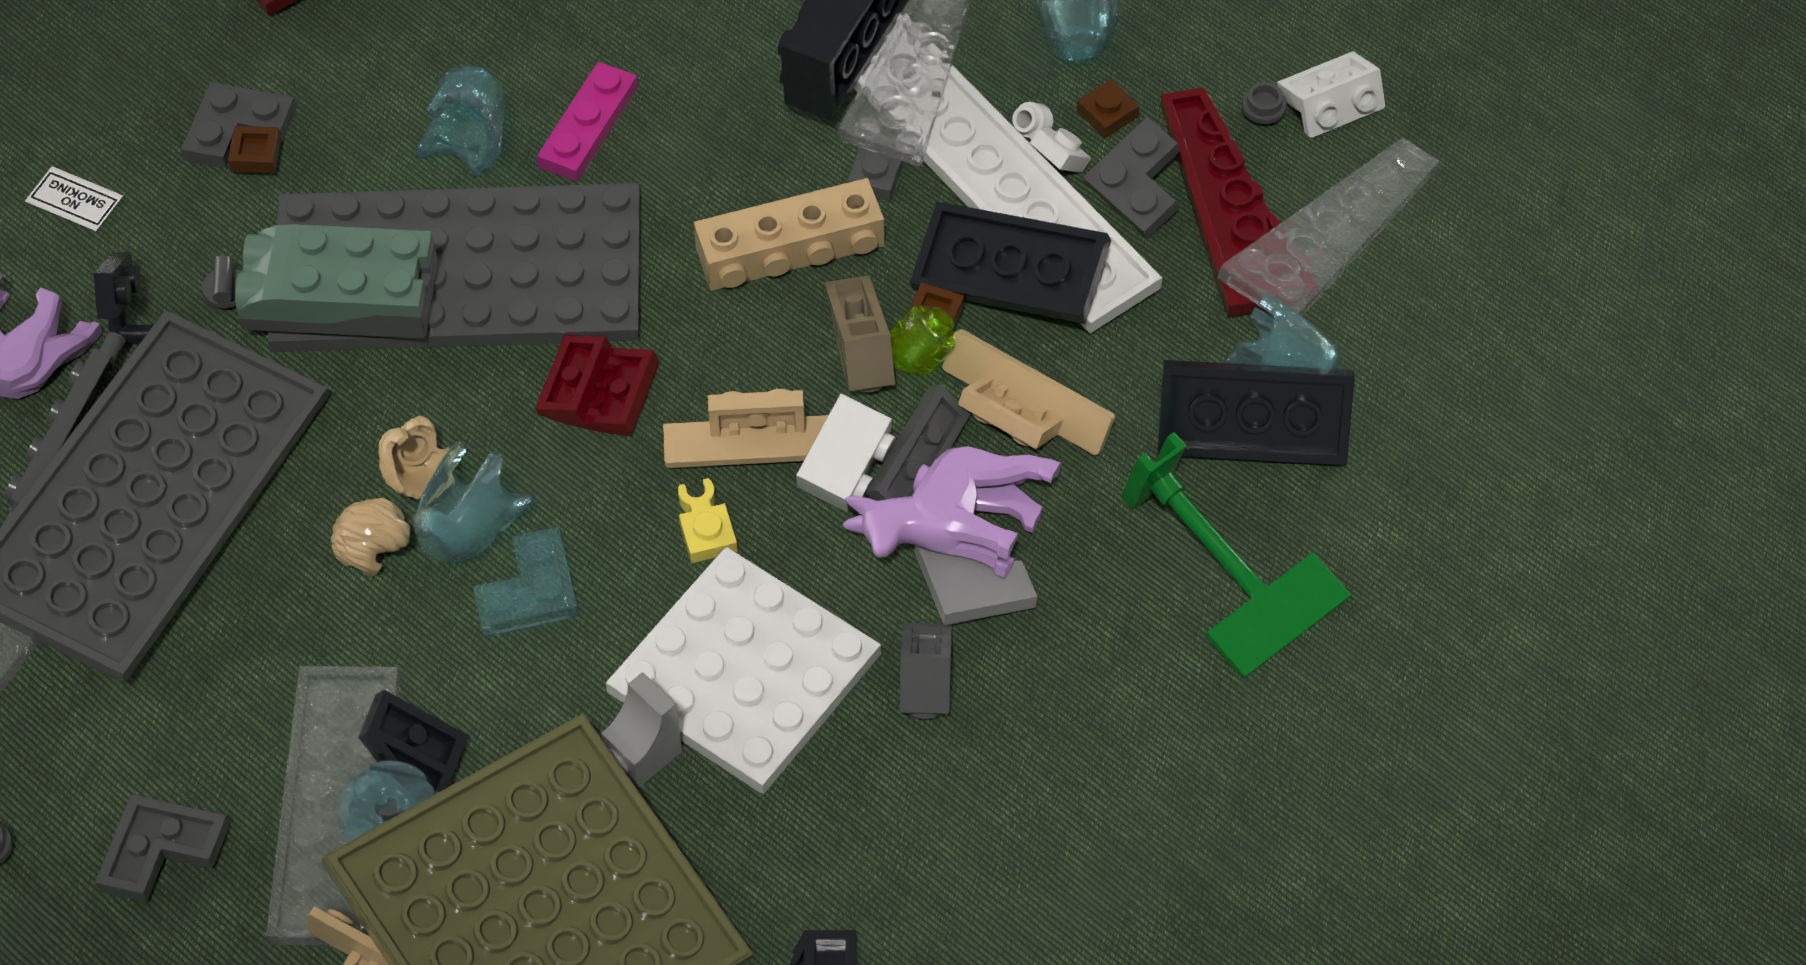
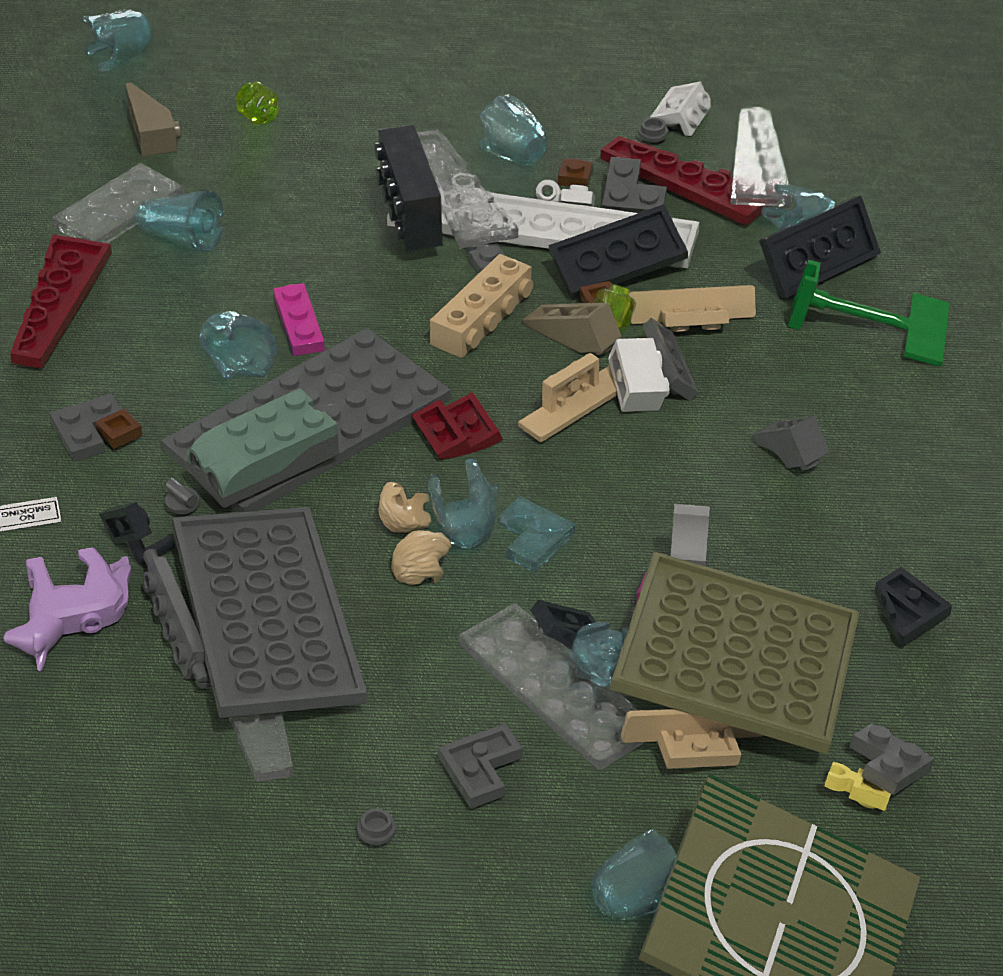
camera: 40 degrees left, 15 degrees down
(705, 526) = (594, 455): light yellow plate -> none
(749, 667) = (712, 478): white plate -> none
(944, 504) = (724, 369): lavender animal -> none
(971, 589) = (763, 399): light grey tile -> none

